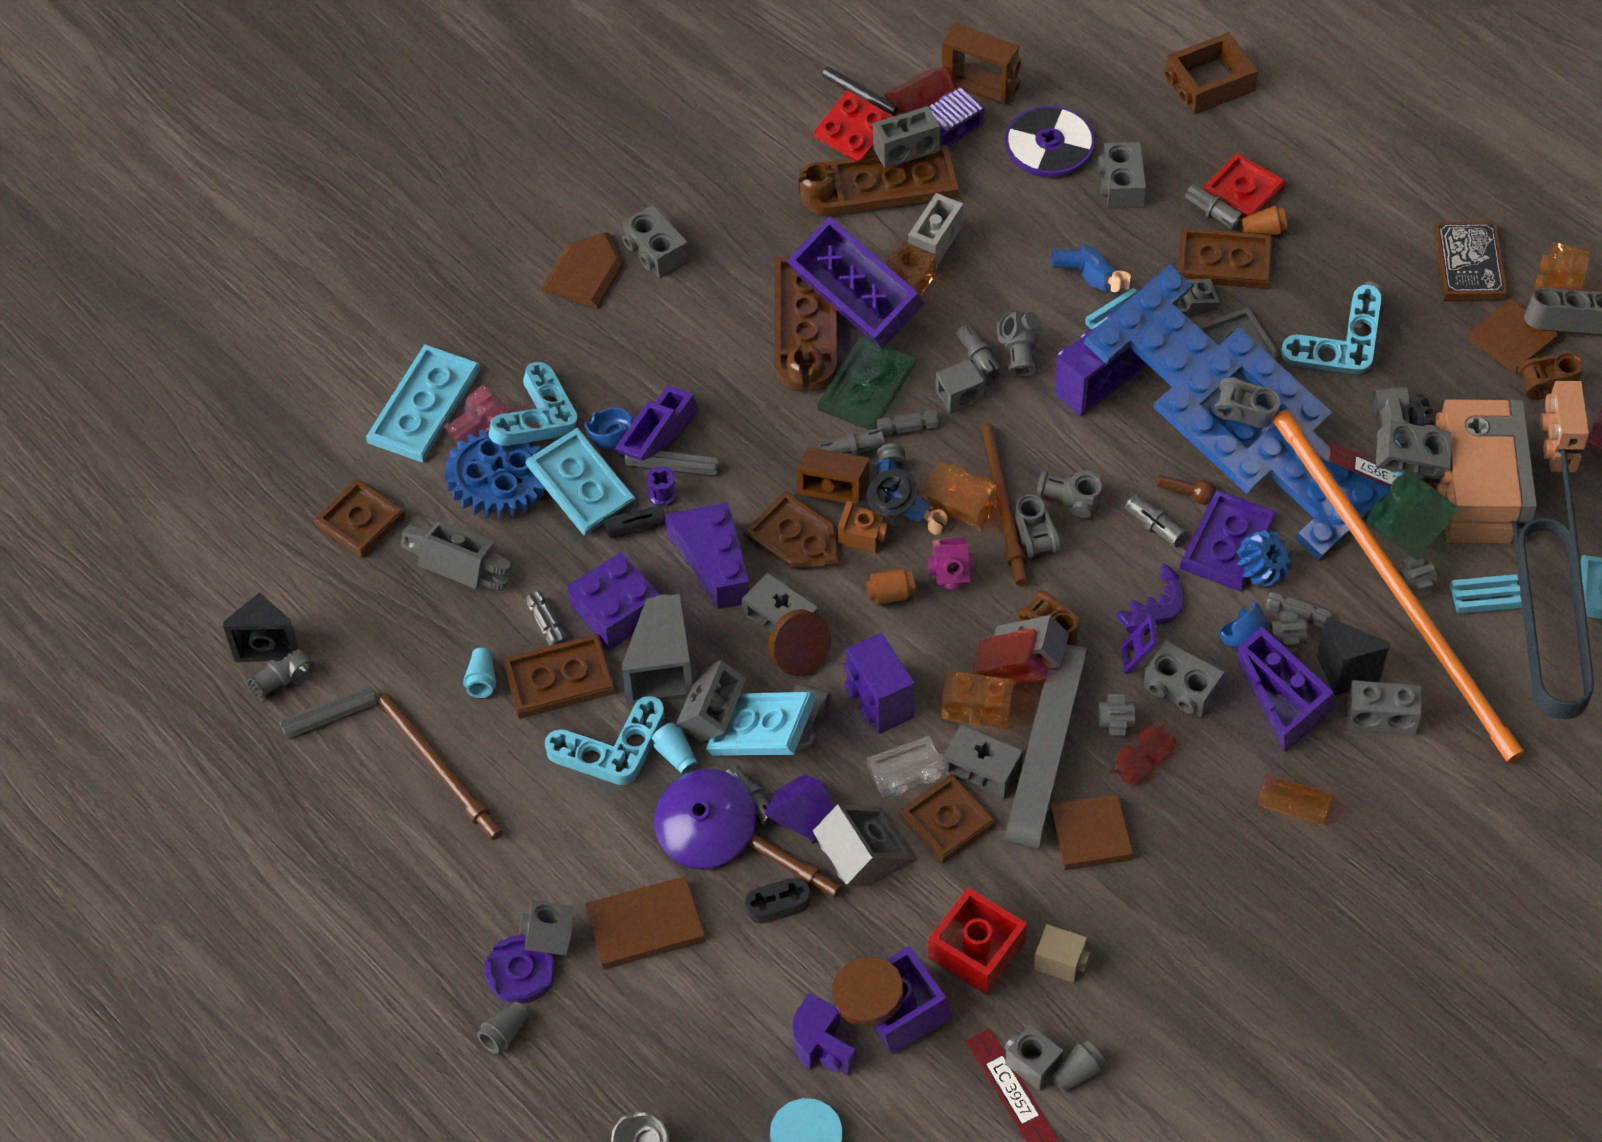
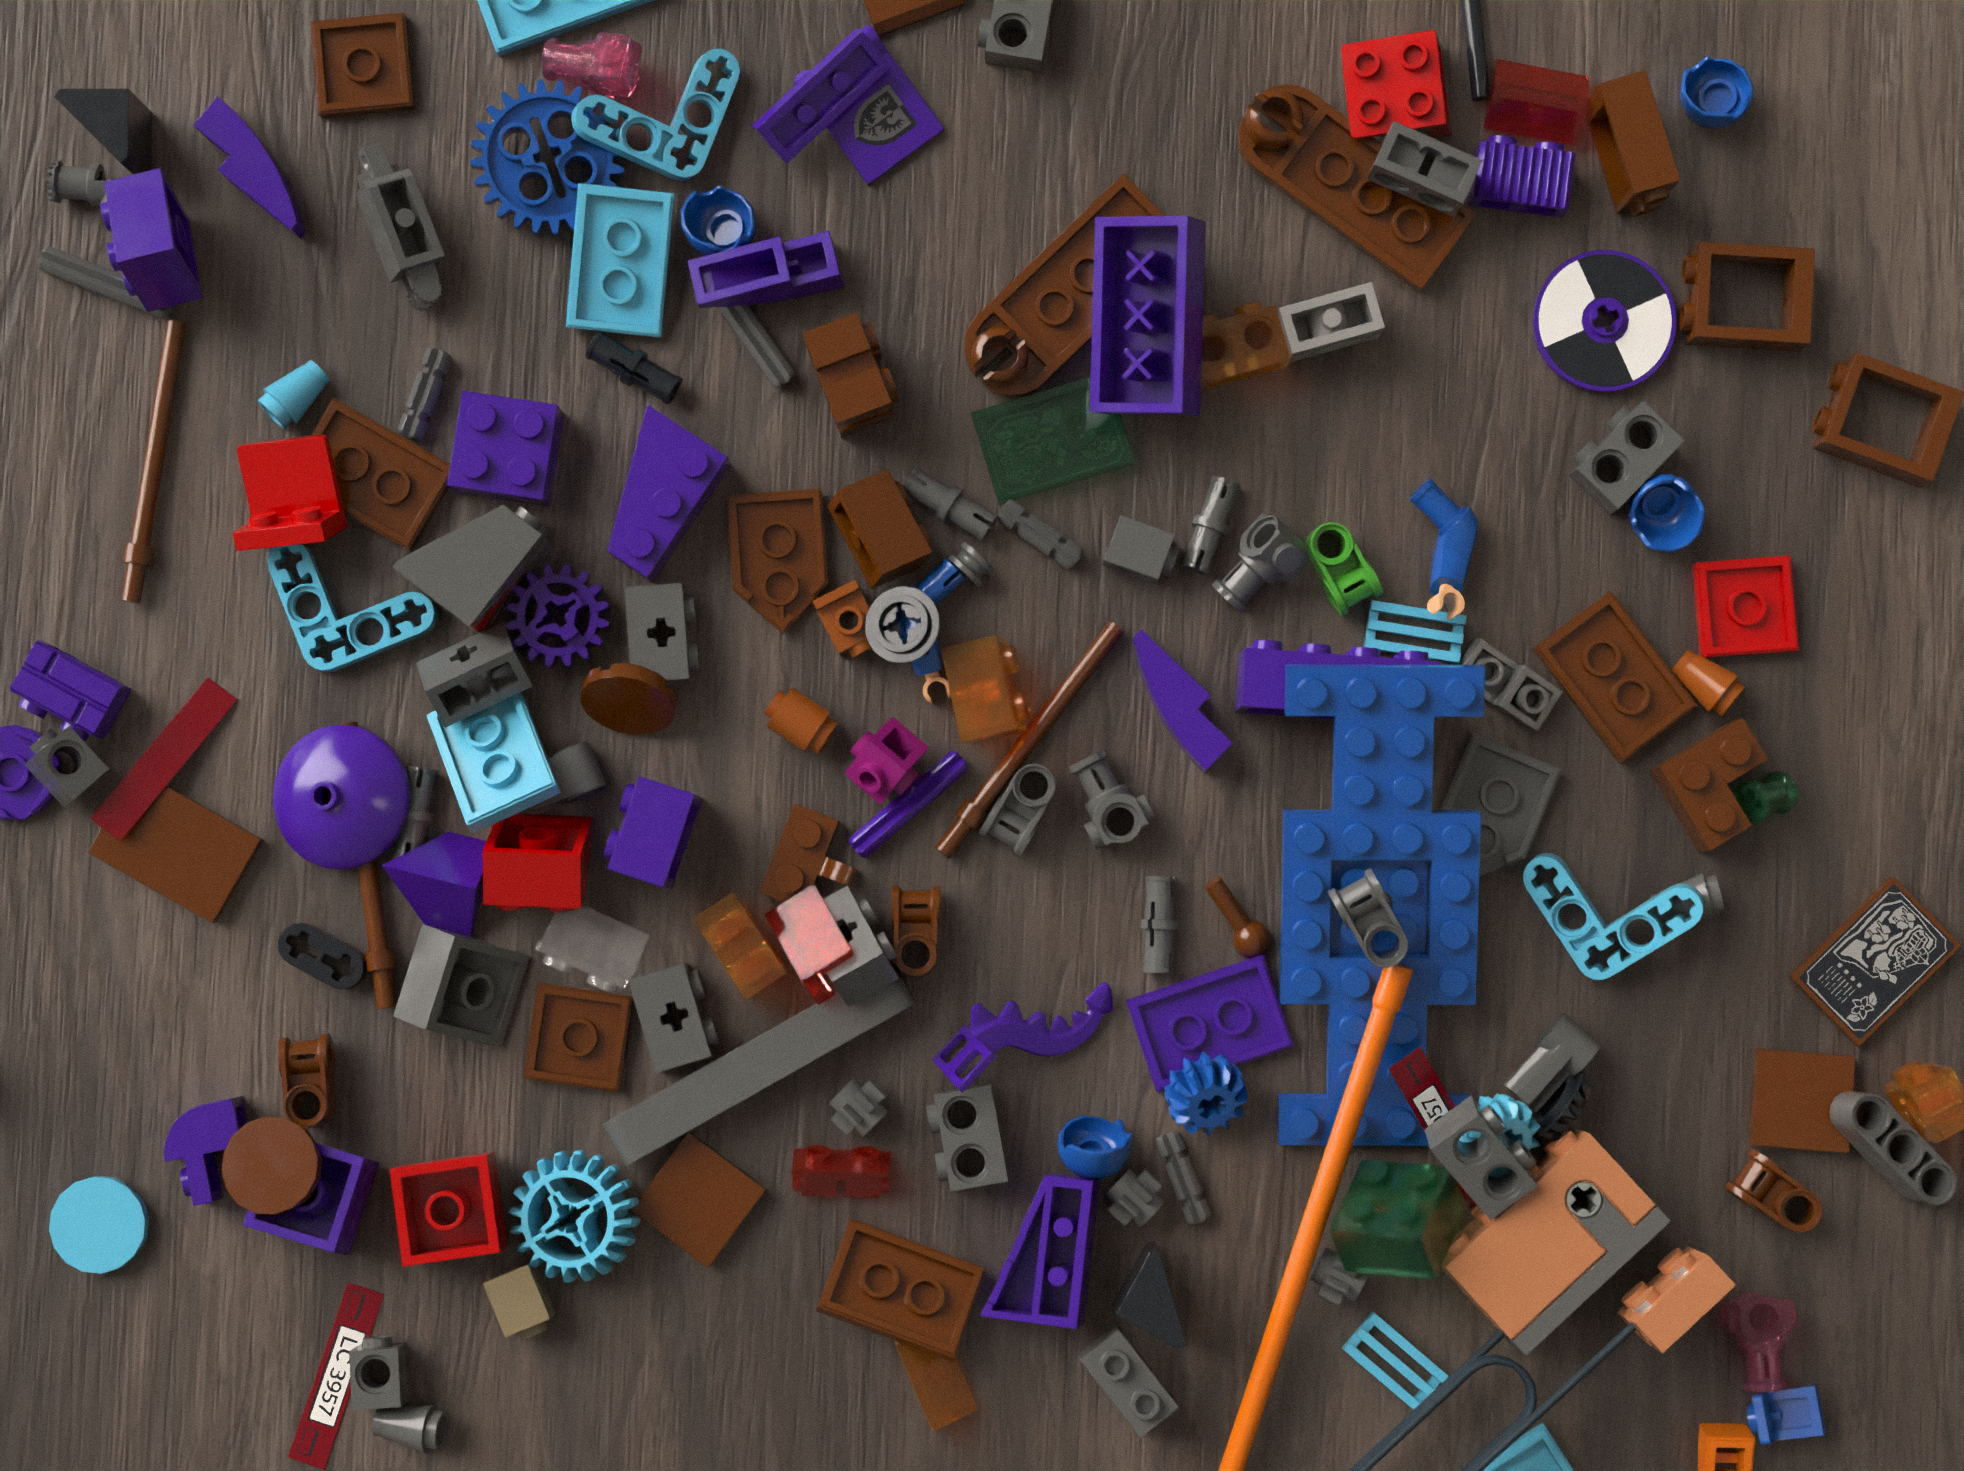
camera: 45 degrees right, 30 degrees up
(339, 655) = (151, 240): none -> dark purple brick
(352, 597) = (250, 165): none -> dark purple slope
(506, 896) = (69, 690): none -> dark purple brick
(526, 706) = (289, 493): none -> red bracket
(594, 887) = (163, 759): none -> dark red sticker
(601, 338) = (821, 96): none -> dark purple plate
(628, 334) = (884, 121): none -> dark purple flag
(661, 486) = (685, 346): dark purple bush -> none
(673, 746) = (394, 684): medium azure cone -> none
(709, 640) = (540, 629): none -> dark purple gear
(745, 426) = (849, 376): none -> reddish brown brick
(830, 952) = (307, 1076): none -> reddish brown piece
(840, 749) = (537, 862): none -> red slope
(958, 641) = (803, 855): none -> reddish brown plate
(982, 578) = (908, 805): none -> dark purple axle
(993, 22) = (1716, 93): none -> blue hair
(1051, 426) = (1177, 703): none -> dark purple slope
(1056, 888) = (563, 1202): none -> medium azure gear
(1057, 316) = (1343, 570): none -> bright green piece
(1114, 62) = (1796, 302): none -> reddish brown window
(1167, 176) = (1666, 513): none -> blue hair
(1214, 207) = (1677, 600): dark grey axle -> none
(1234, 772) = (901, 1290): none -> reddish brown tile
(1315, 259) = (1698, 780): none -> reddish brown brick
(1335, 237) = (1773, 794): none -> clear green bush

